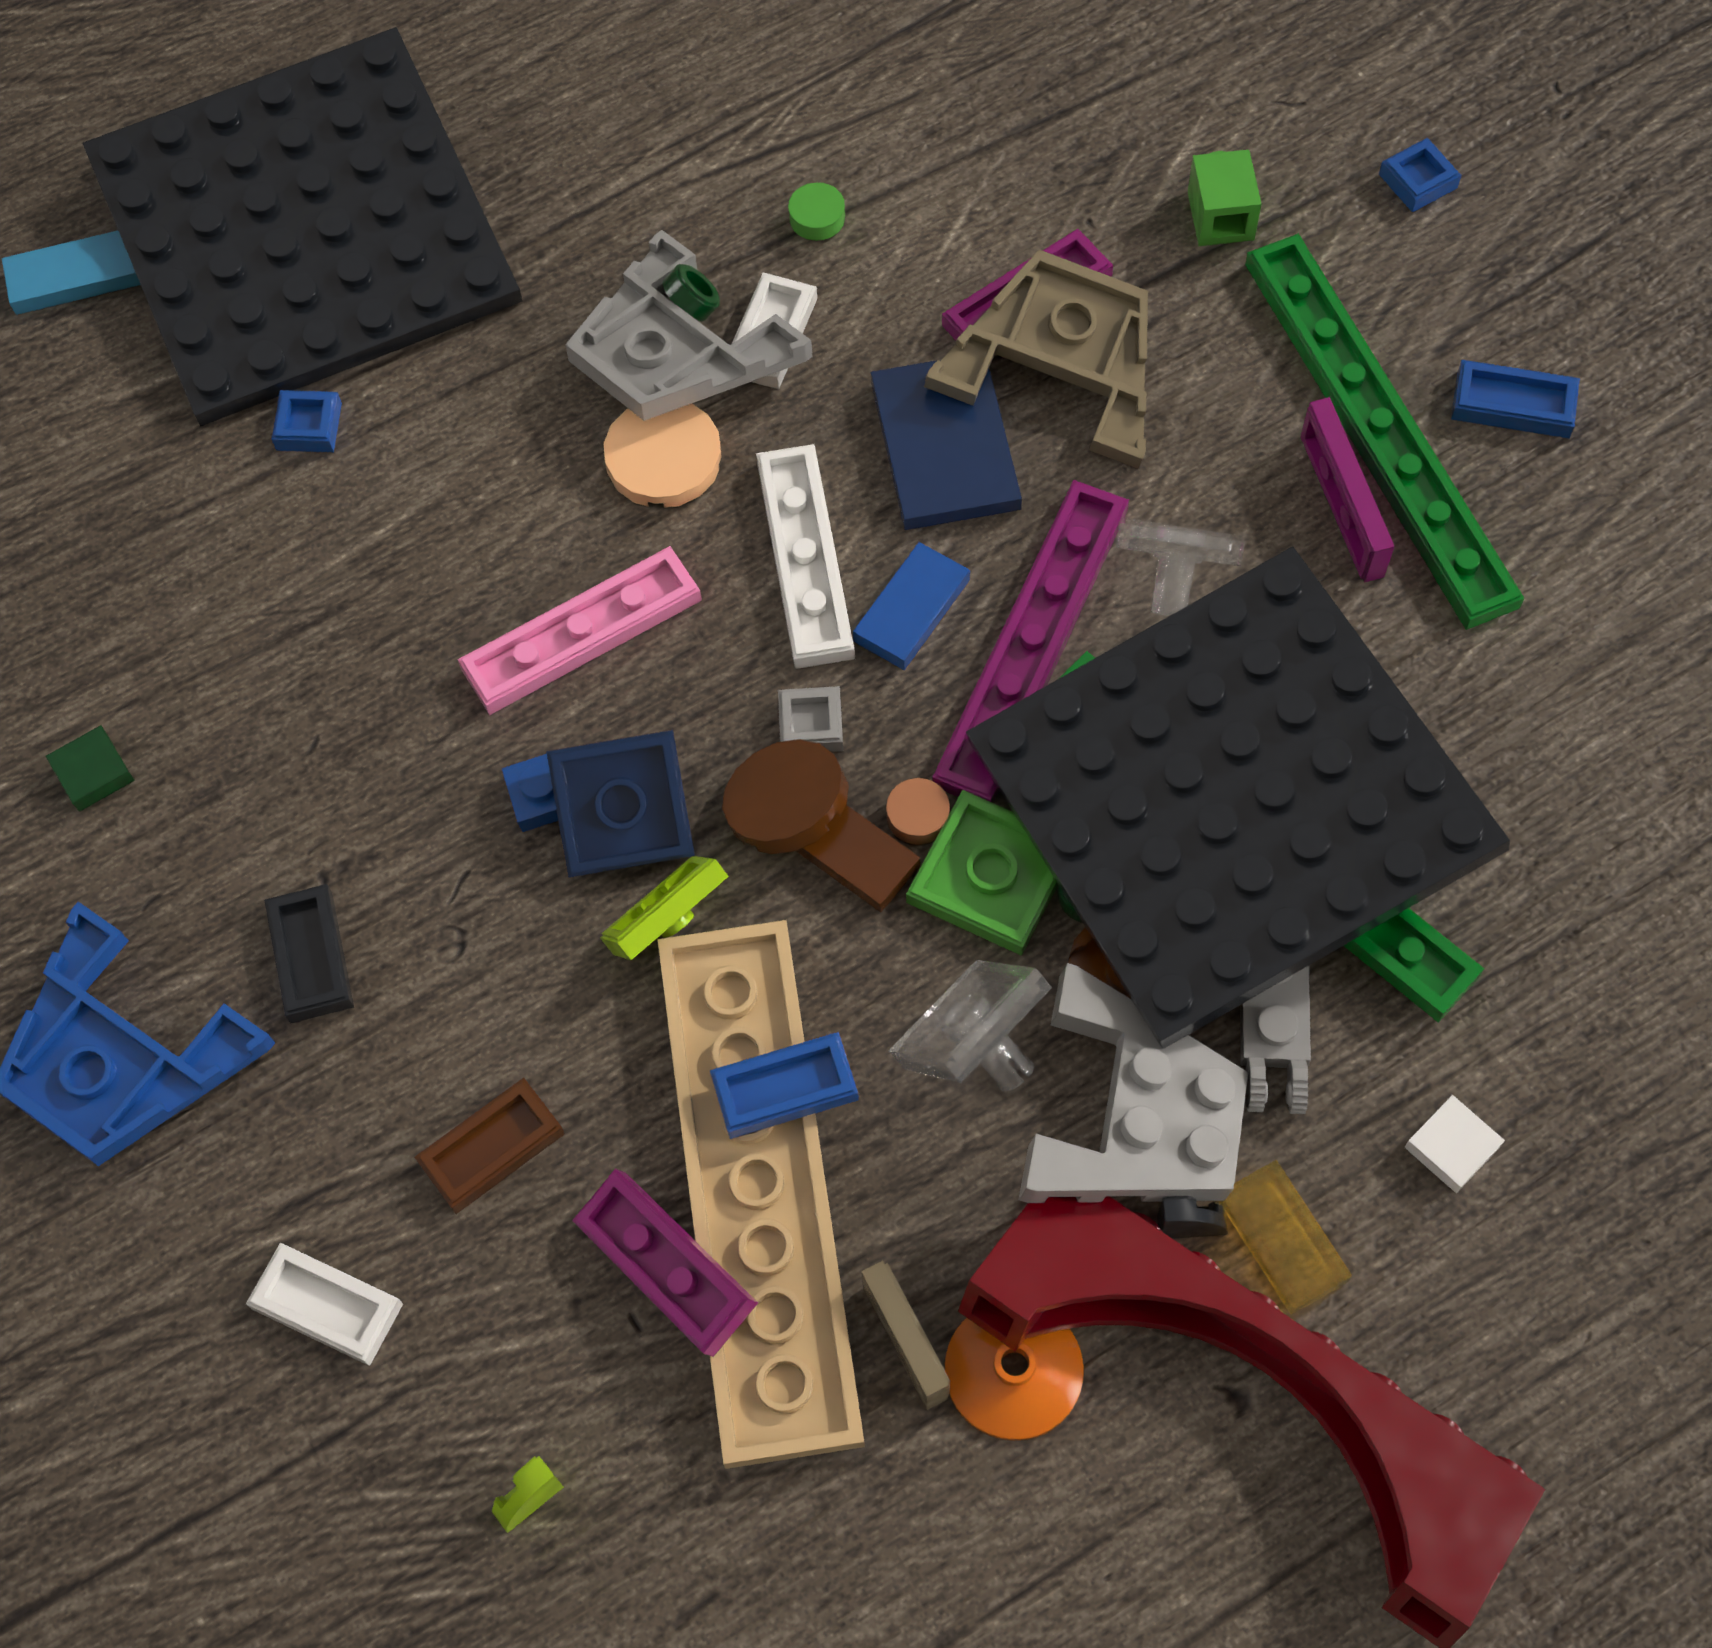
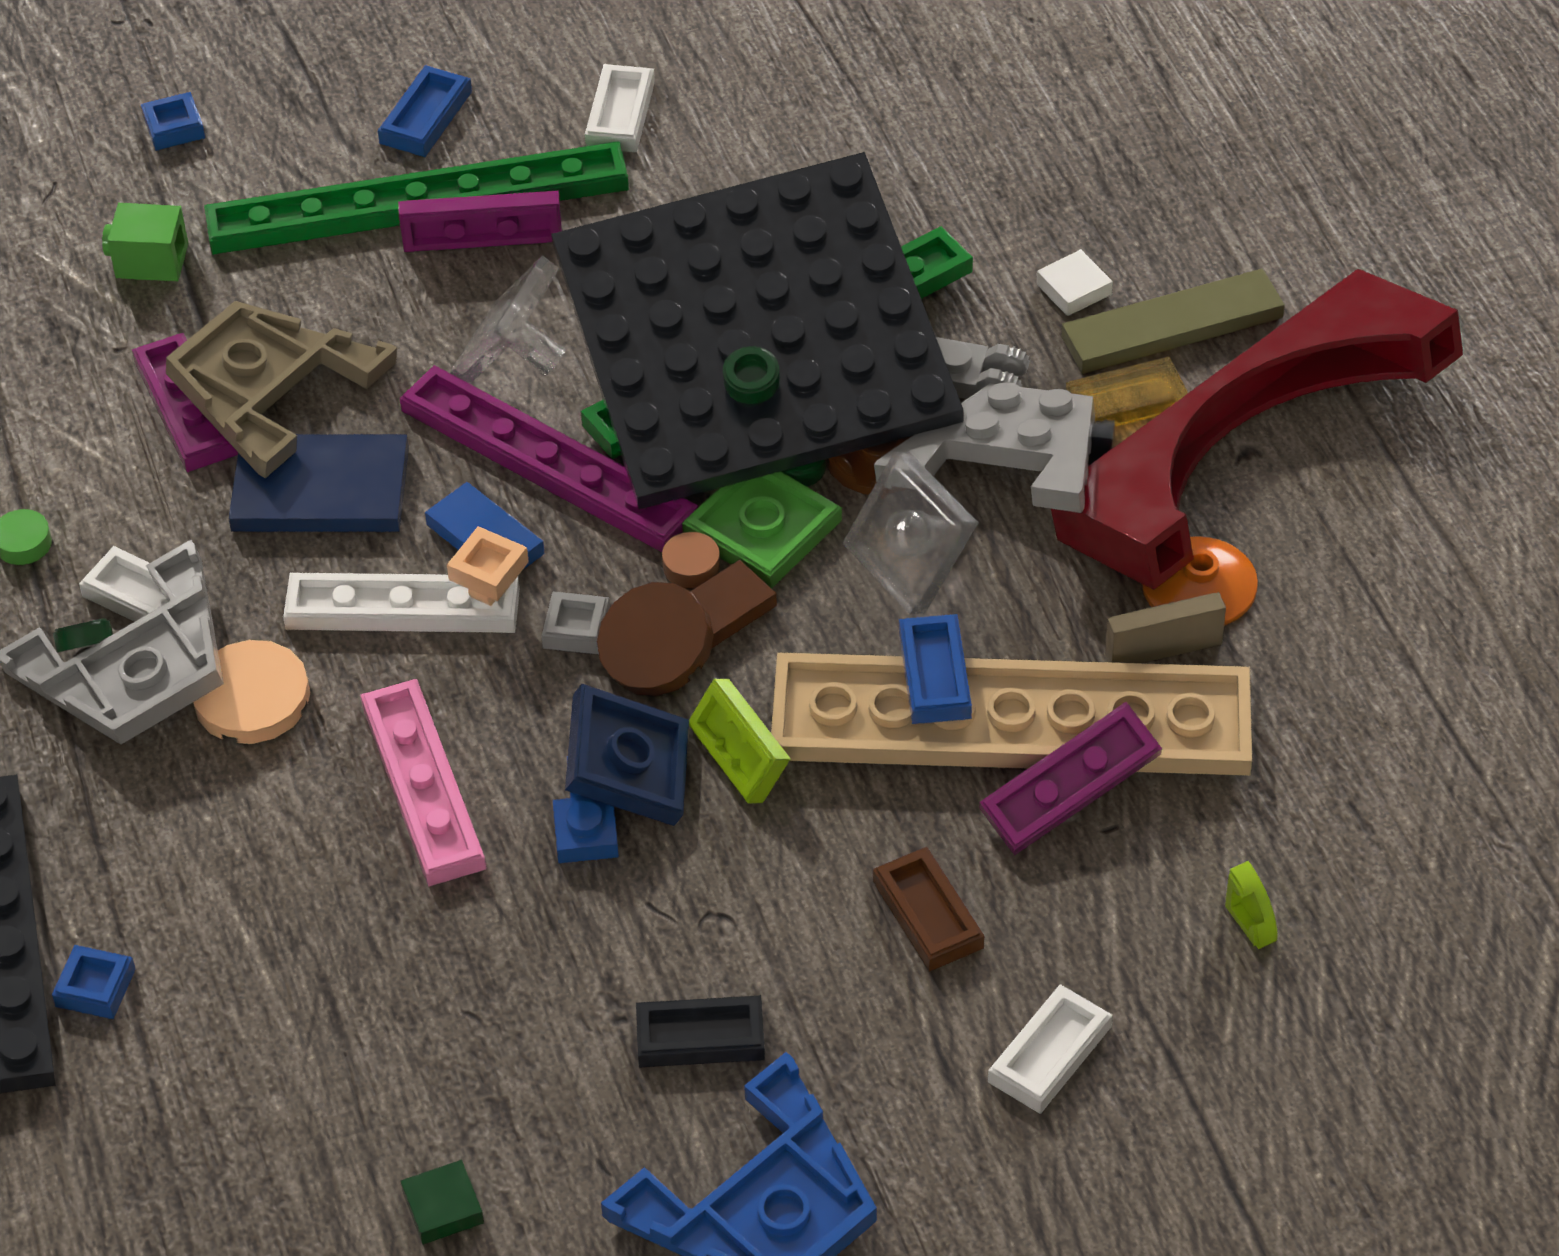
camera: 80 degrees left, 15 degrees down
(825, 606) = (487, 565): none -> light nougat tile
(1134, 797) = (751, 375): none -> dark green tile
(1426, 1275) = (1172, 320): none -> olive tile
(1587, 589) = (620, 106): none -> white tile

